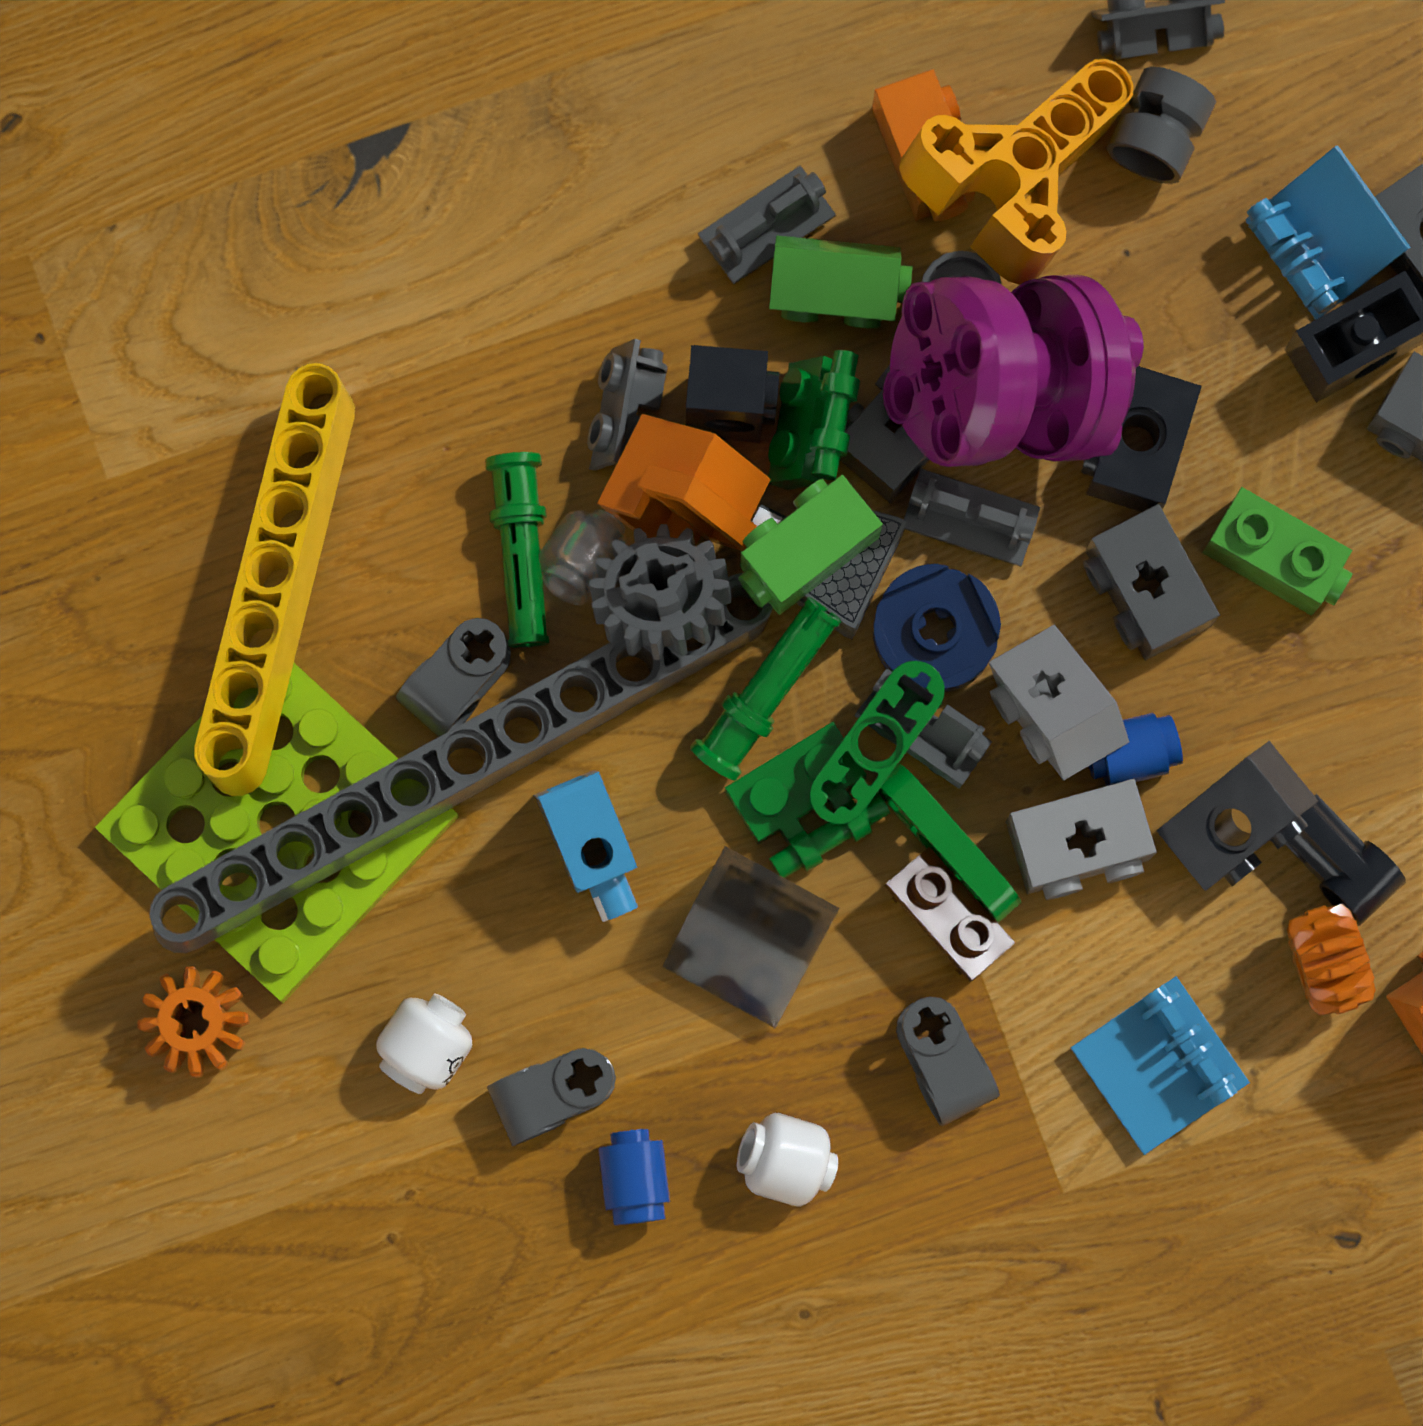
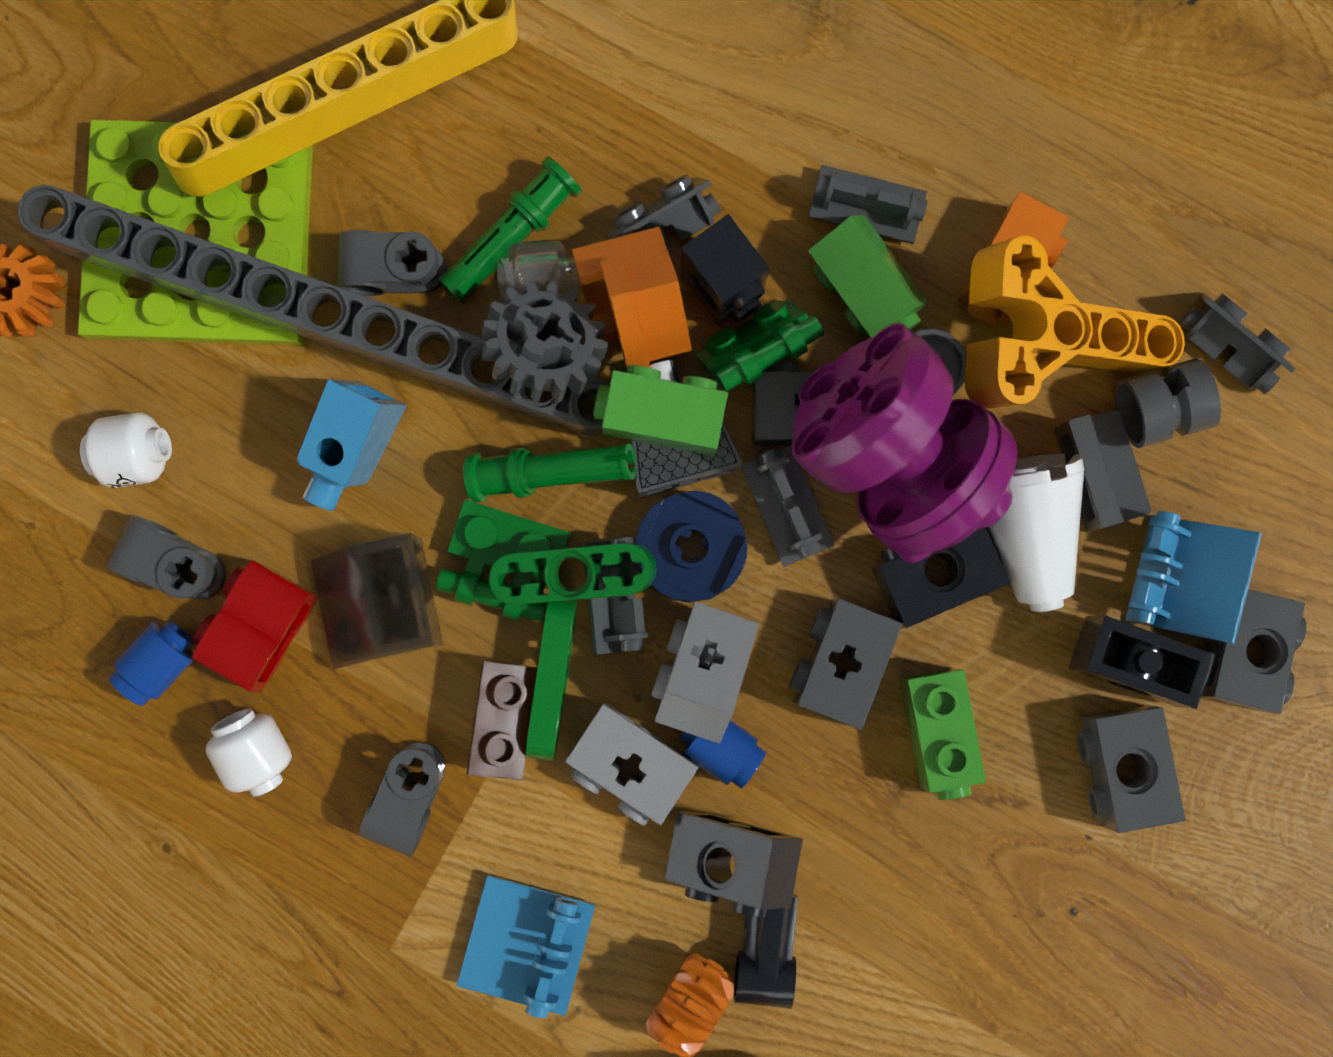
camera: 50 degrees right, 5 degrees up
(678, 1061) = (253, 626): none -> red brick
(1171, 227) = (1111, 475): none -> dark grey panel
(1180, 321) = (1041, 530): none -> white cone

